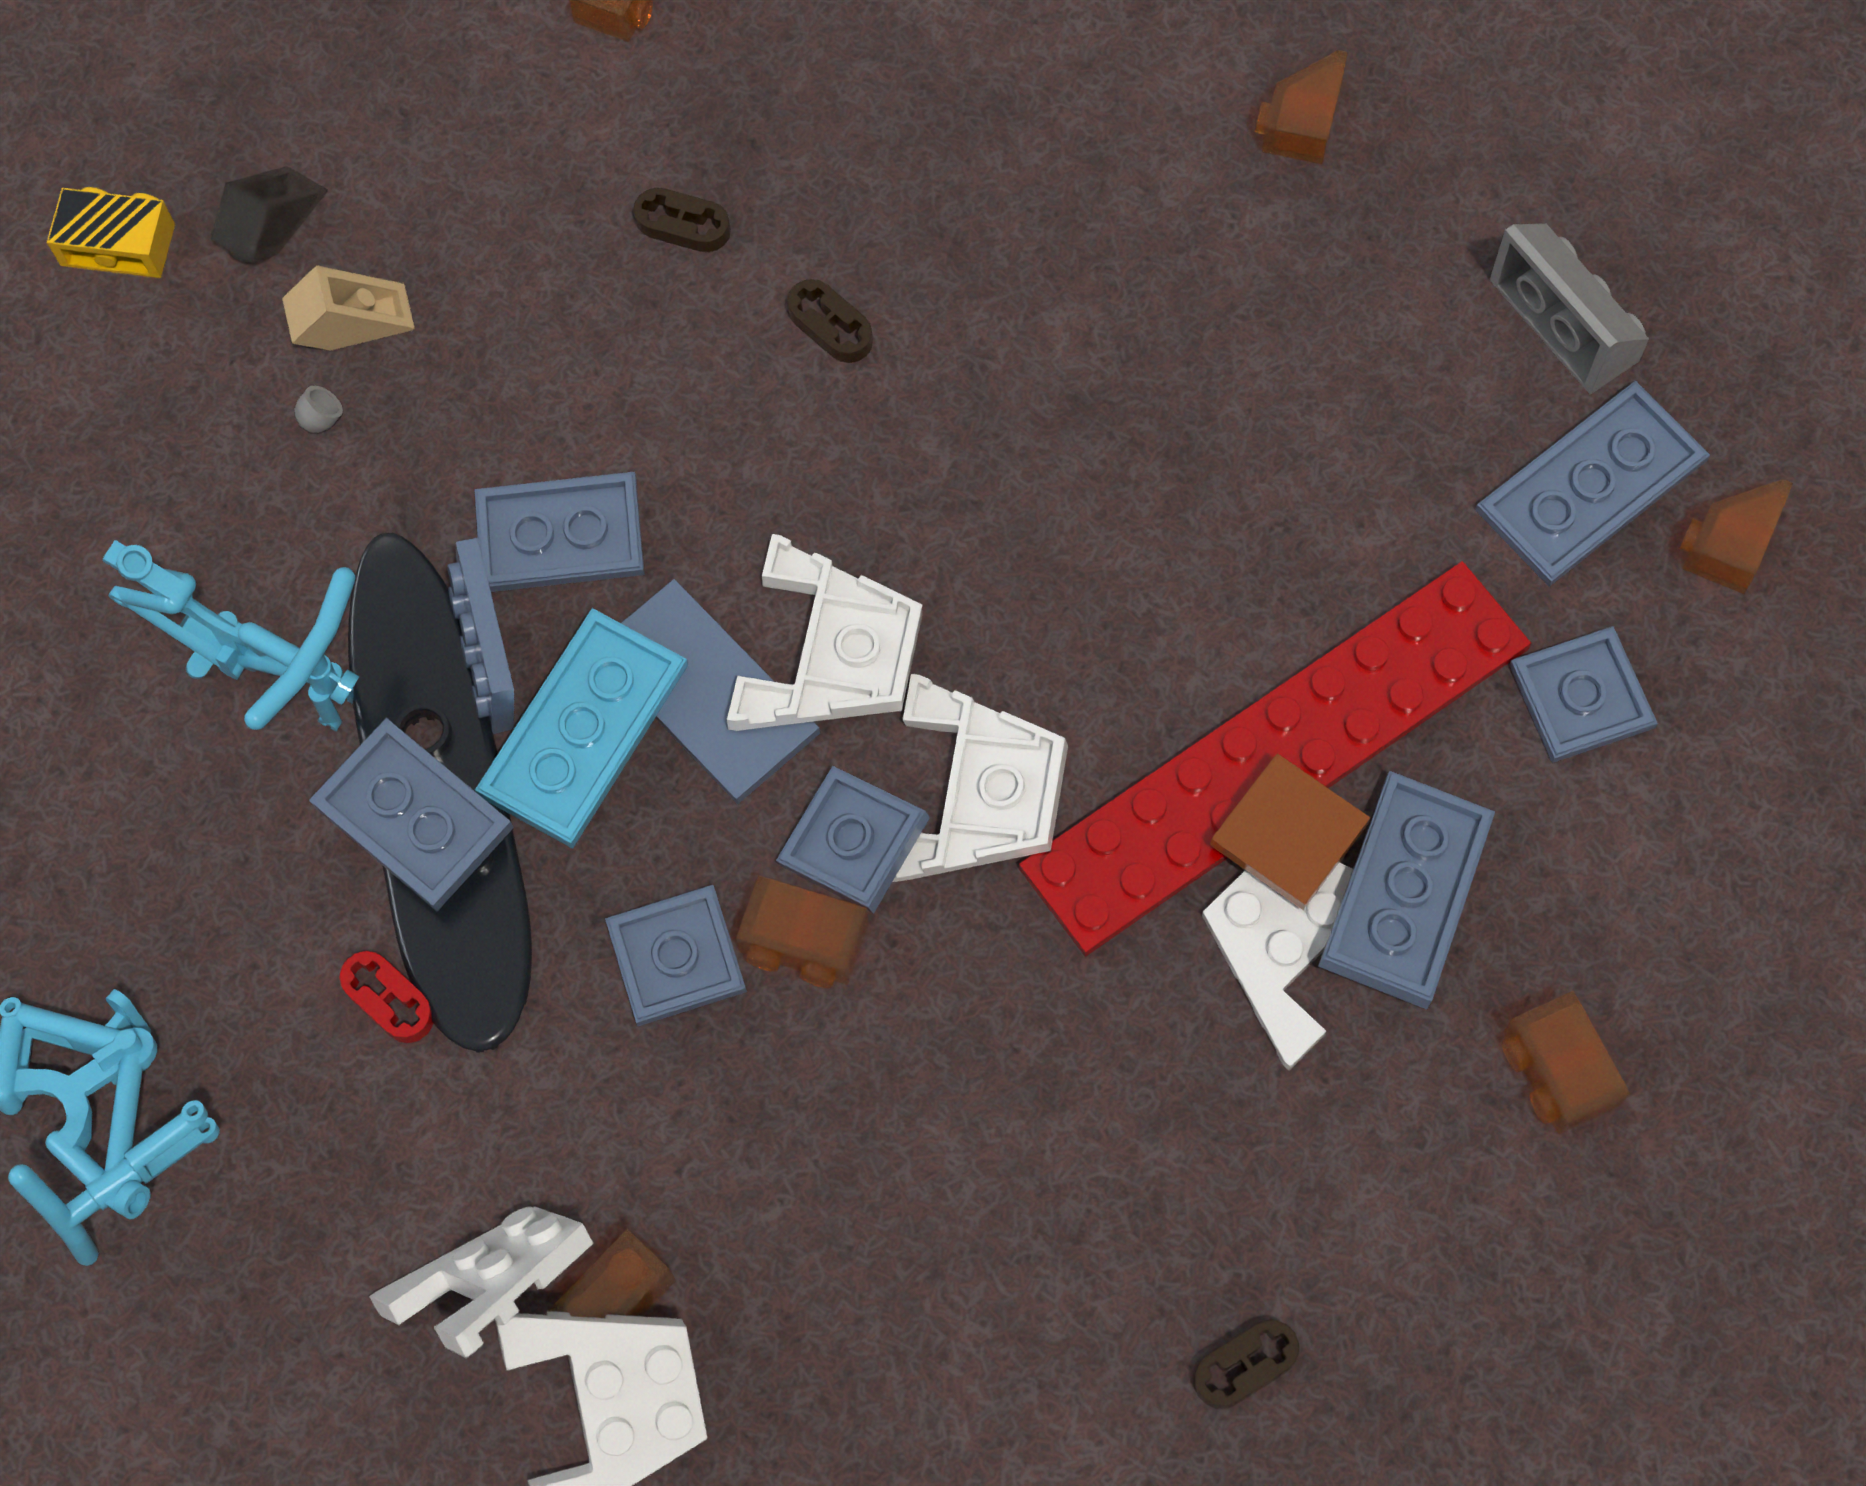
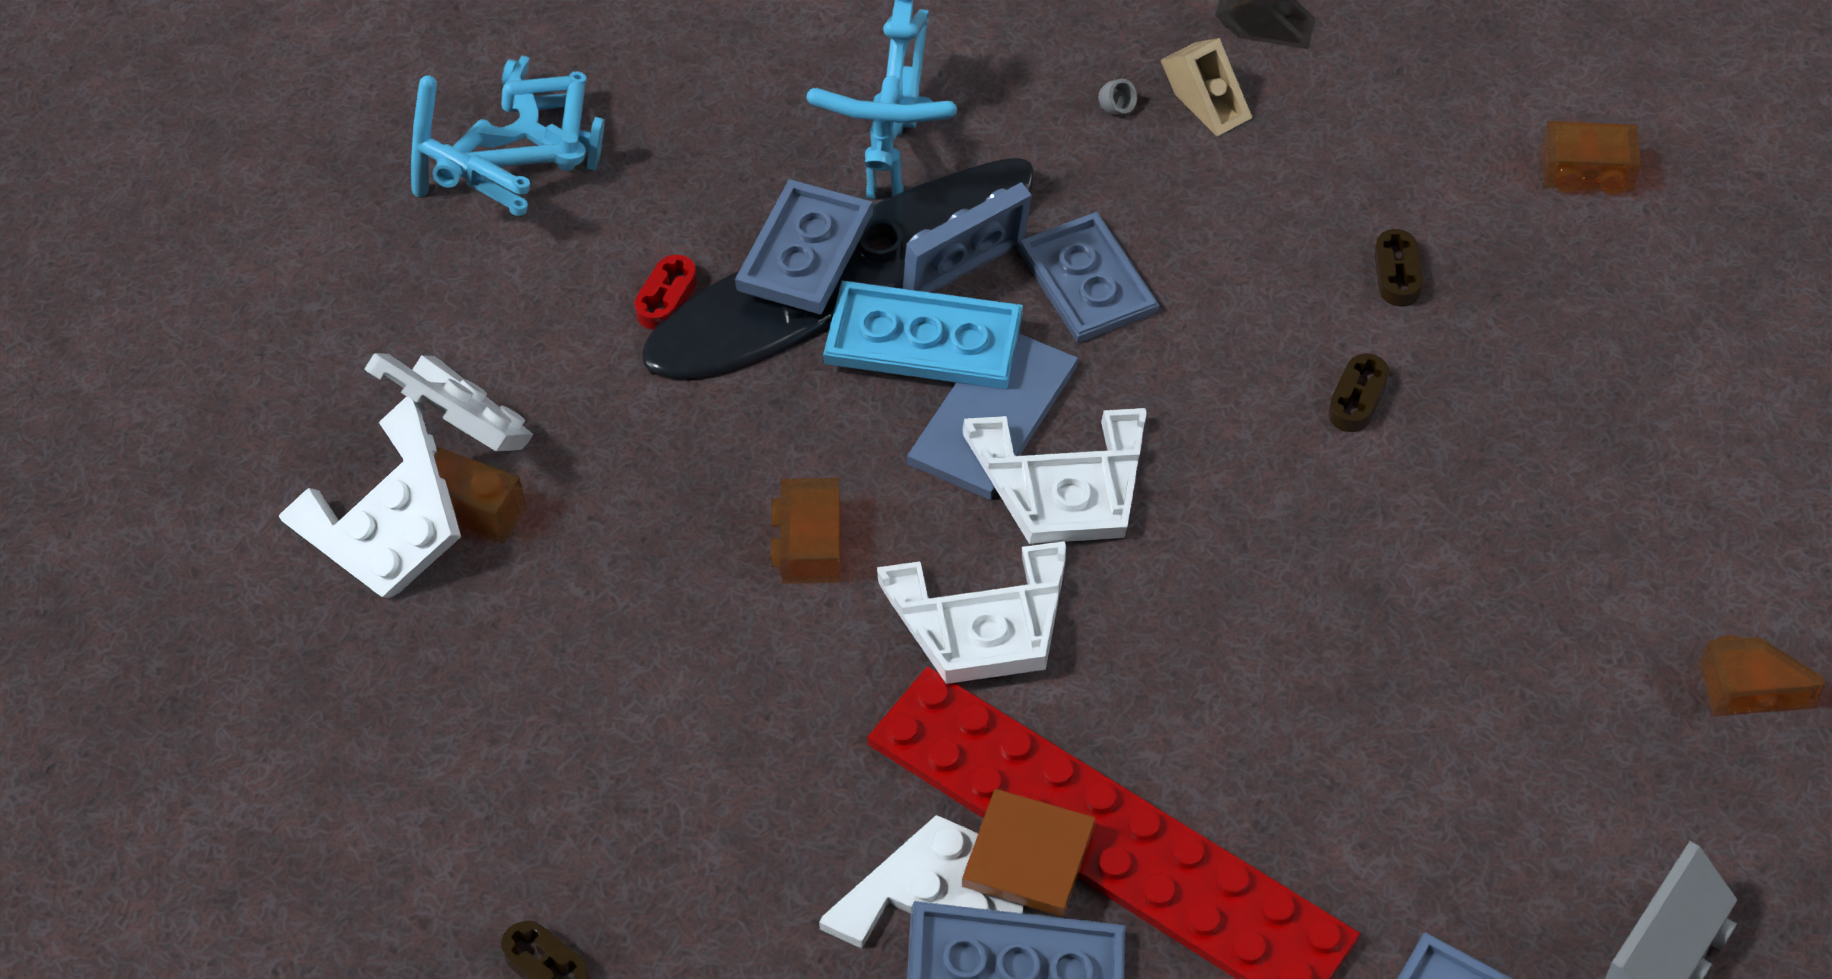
camera: 70 degrees right, 15 degrees down
(675, 955) = (759, 455): sand blue tile -> none
(853, 839) = (902, 542): sand blue tile -> none

